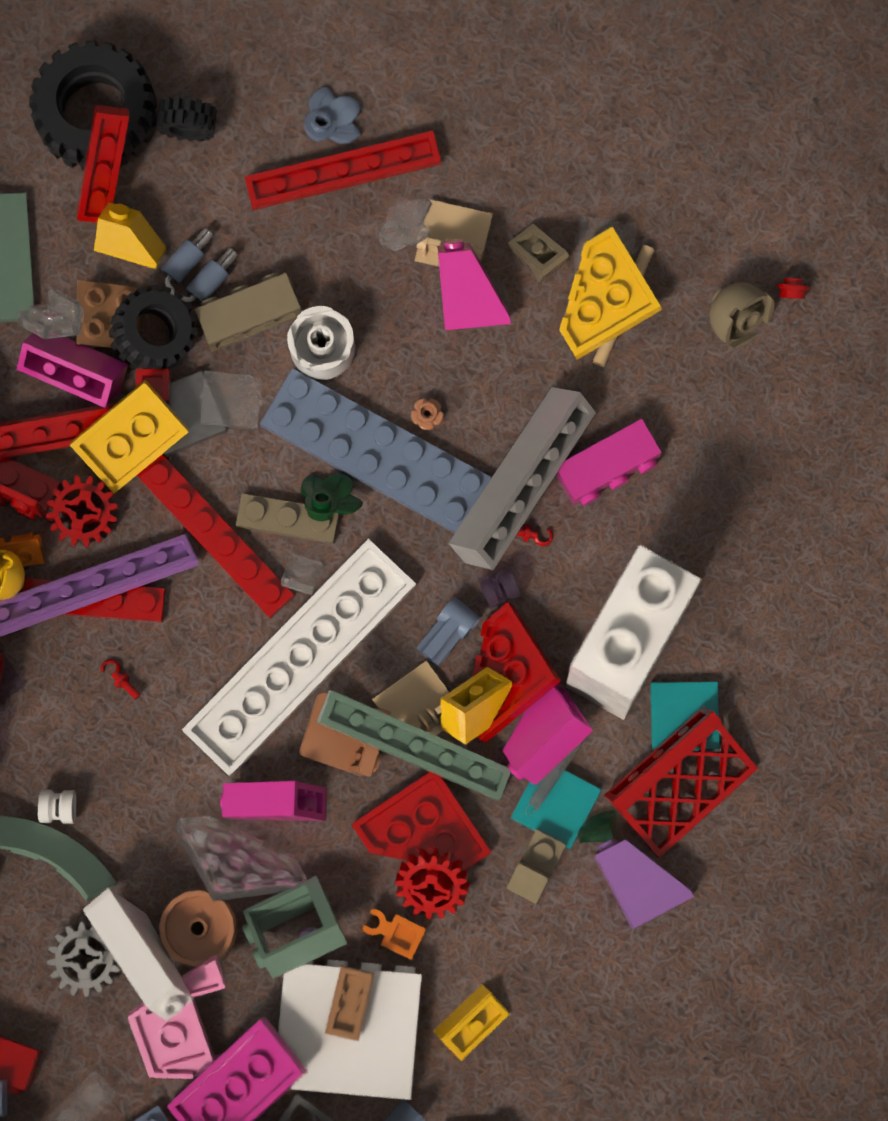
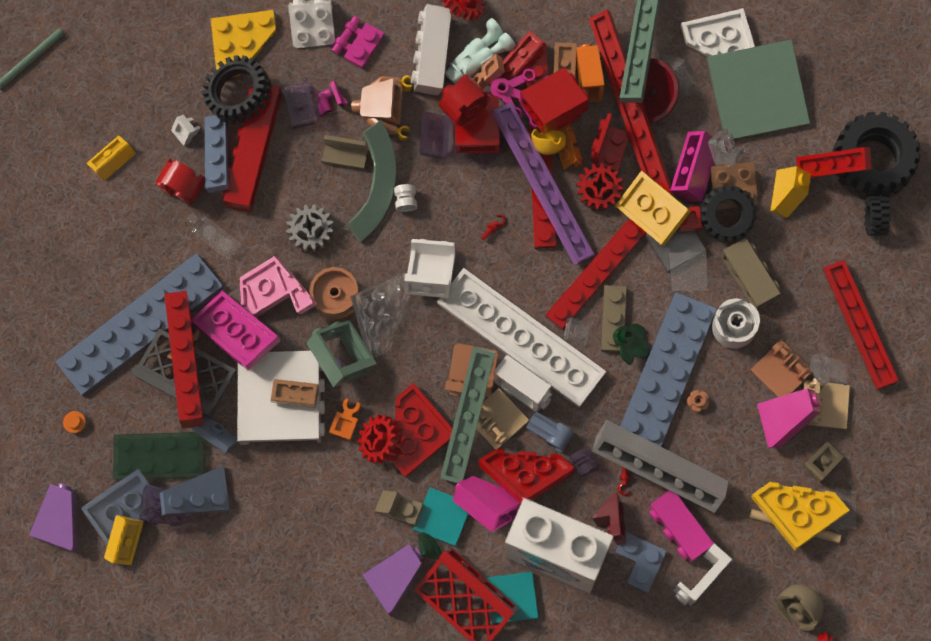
camera: 85 degrees right, 5 degrees down
(139, 953) = (317, 253): white slope -> none
(177, 779) = (430, 268): none -> white panel
(185, 260) = (779, 229): sand blue piece -> none
(273, 801) = (423, 332): dark pink slope -> none
(335, 113) = (899, 316): sand blue plate -> none
(376, 660) = (522, 384): none -> white window
(396, 290) = (781, 370): none -> nougat hinge
(471, 1022) = (292, 477): yellow slope -> none
(474, 705) = (500, 451): yellow slope -> none
(537, 807) = (440, 497): light grey piece -> none
(580, 556) = (612, 516): none -> dark red slope
(646, 518) = (647, 560): none -> sand blue plate
(691, 435) = (715, 557): none -> white panel

